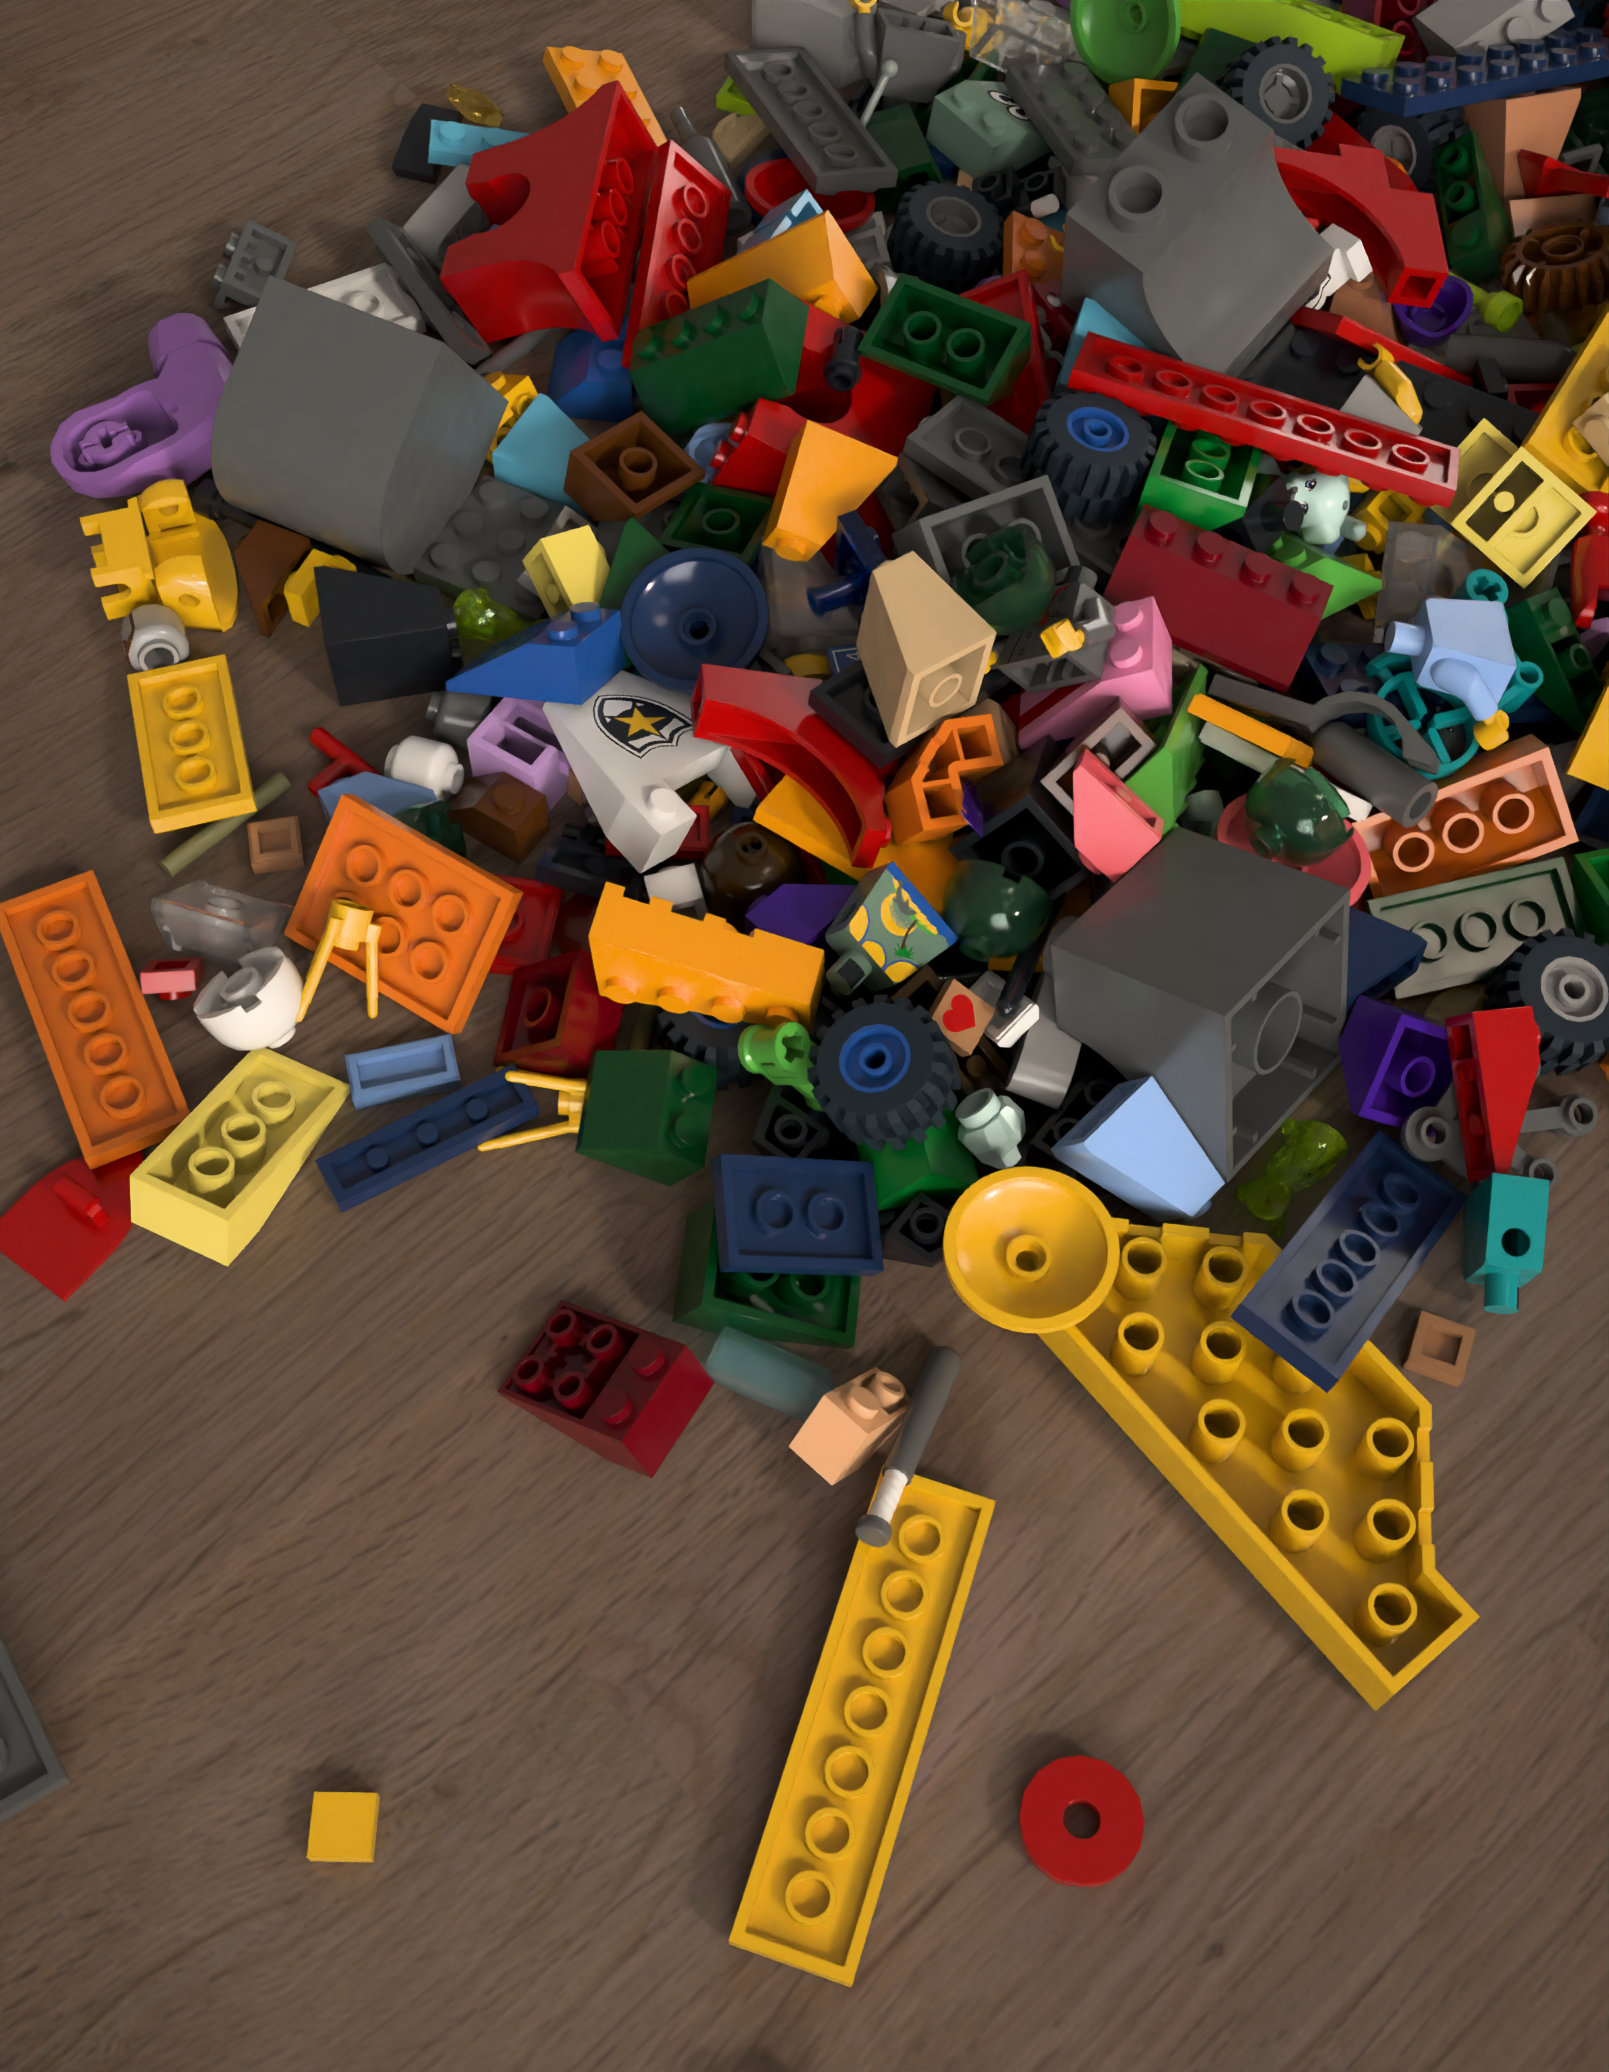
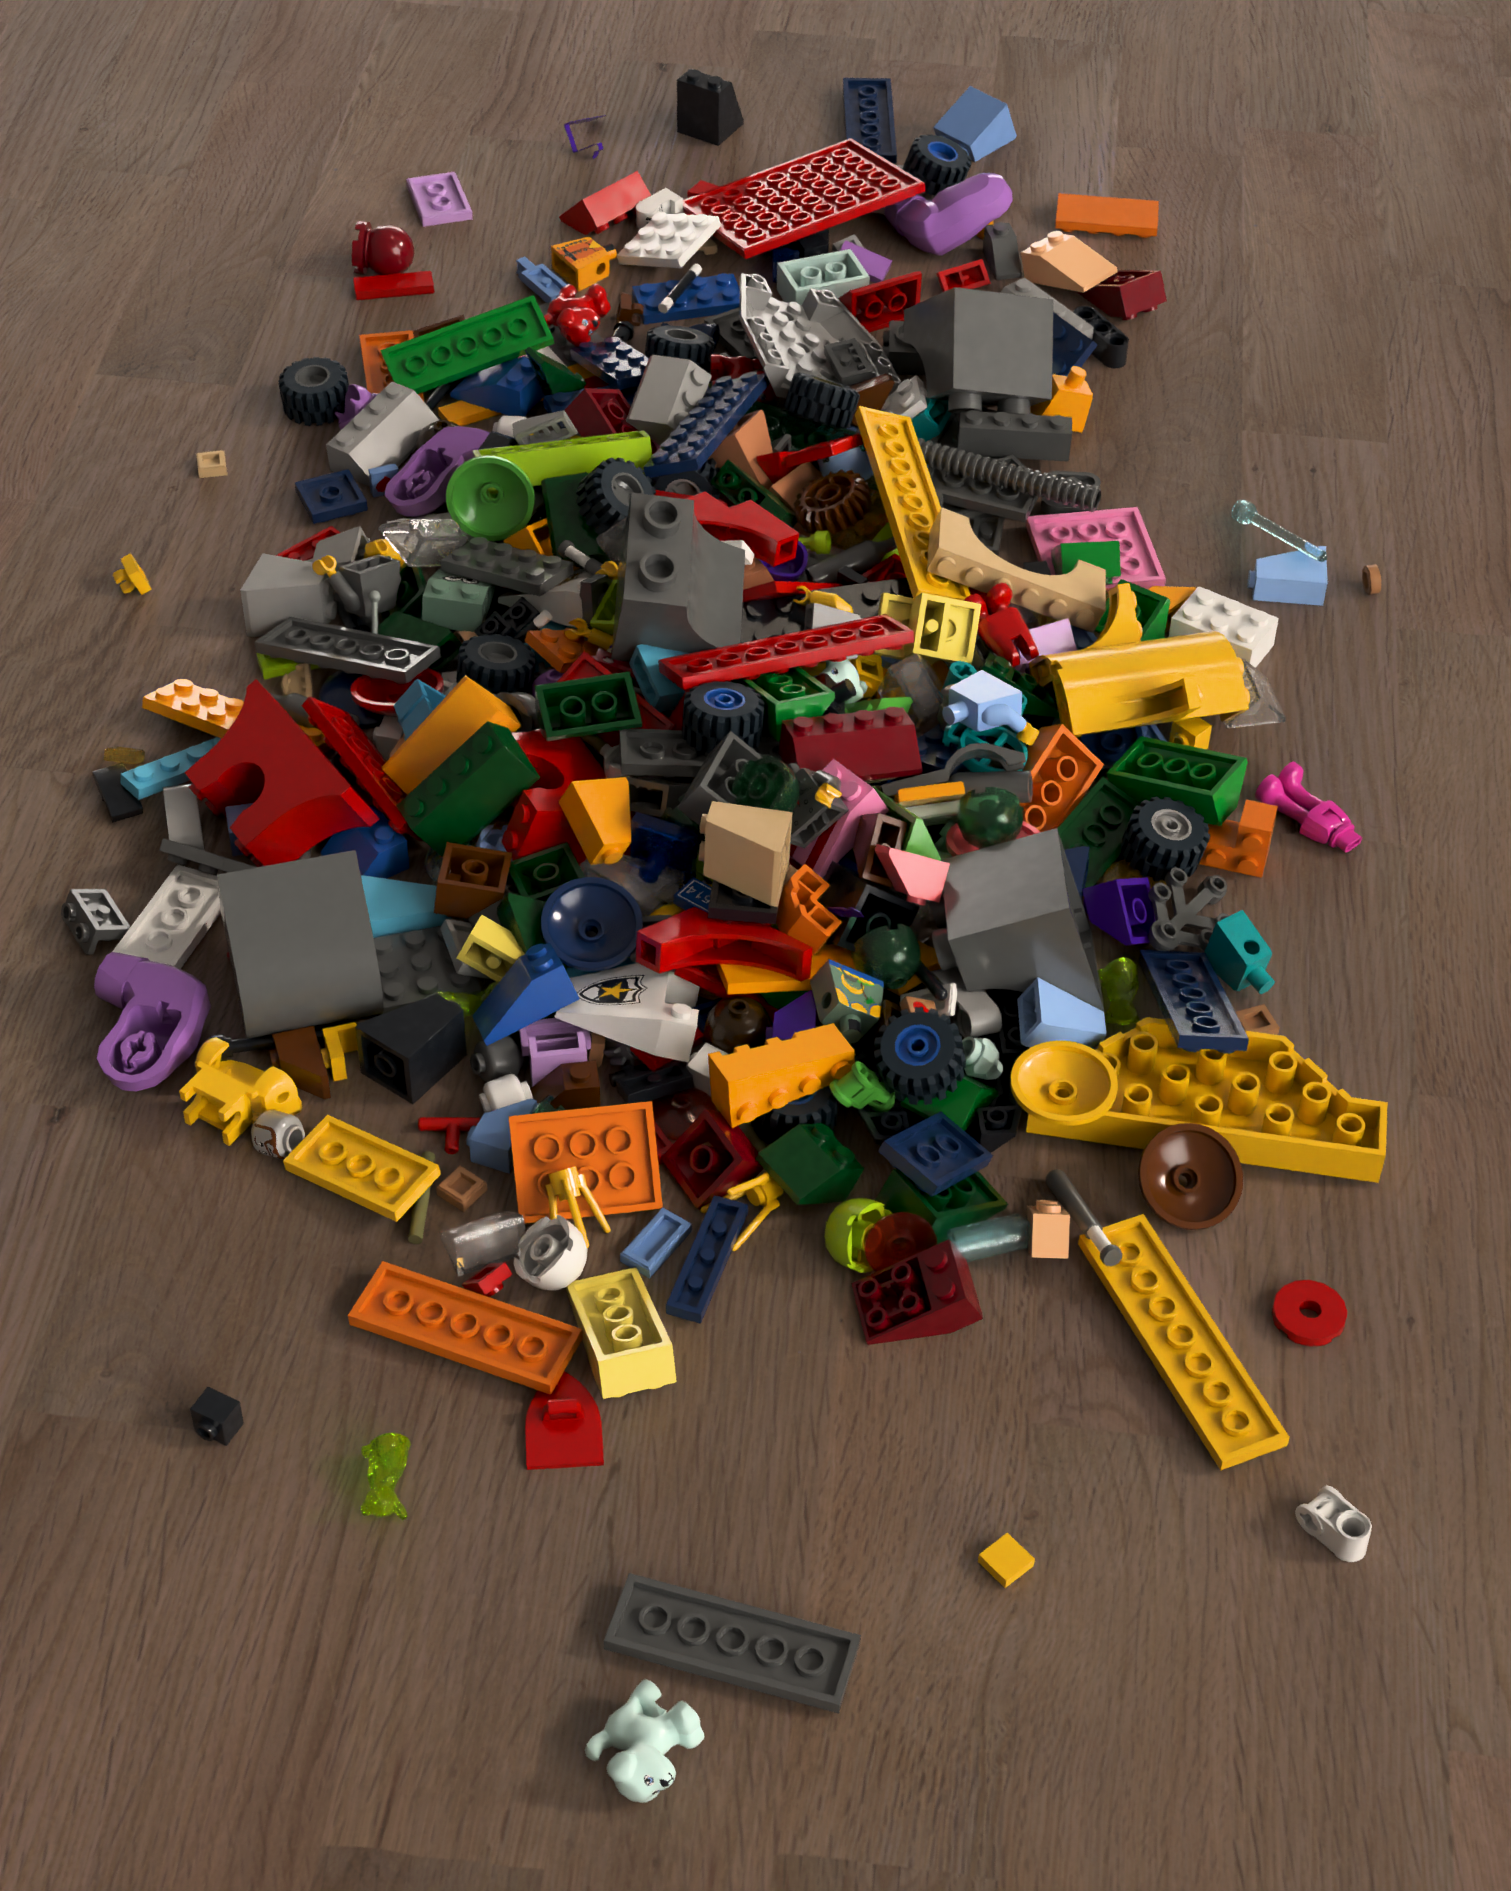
camera: 40 degrees left, 15 degrees down
(615, 1246) = (848, 1229): none -> lime cylinder
(643, 1295) = (879, 1244): none -> clear red dish
(843, 368) = (545, 754): black pin -> none
(1095, 1542) = (1207, 1164): none -> reddish brown dish
(1493, 1077) = (1176, 886): red slope -> none

